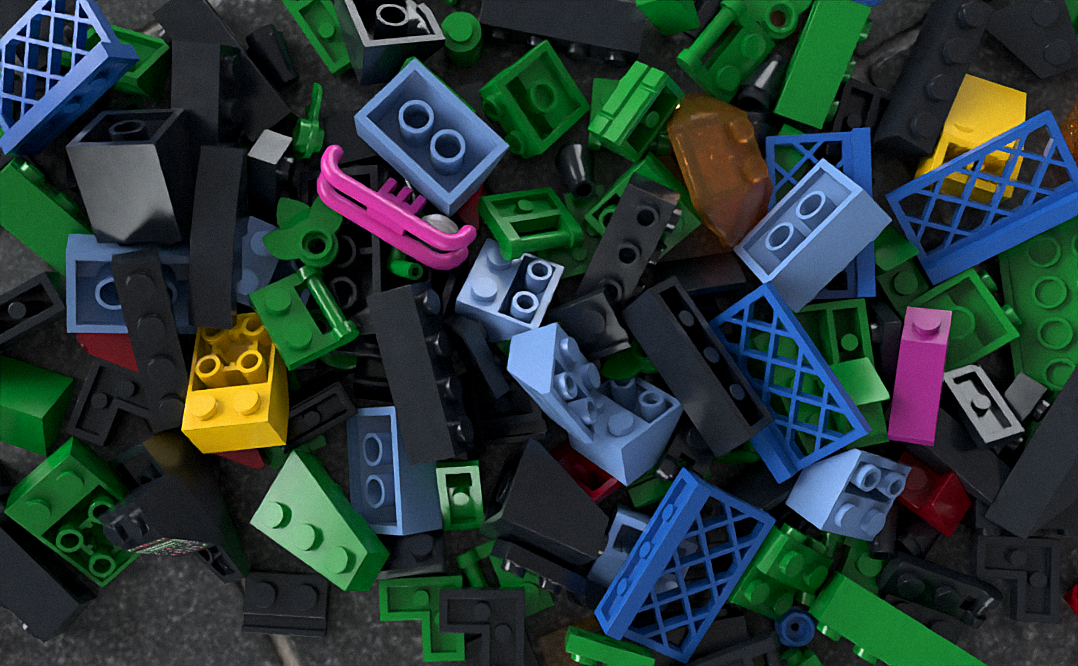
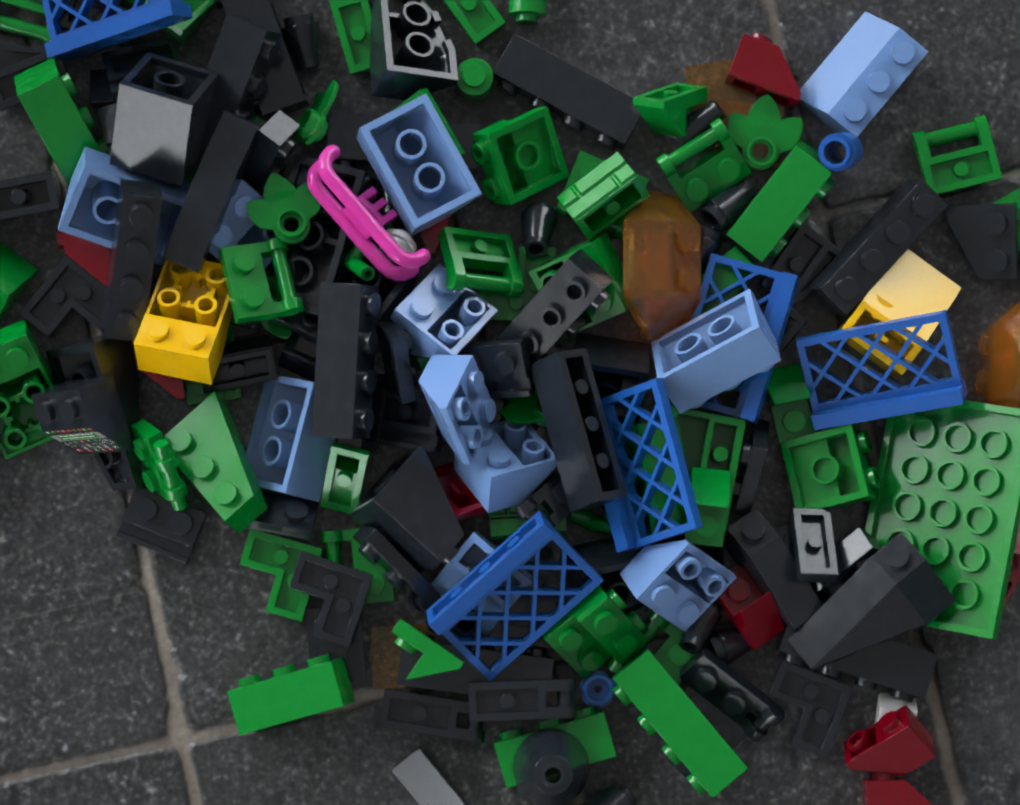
camera: 20 degrees right, 0 degrees up
(263, 556) = (159, 464): none -> green plate
(920, 375) = (769, 499): magenta slope -> none

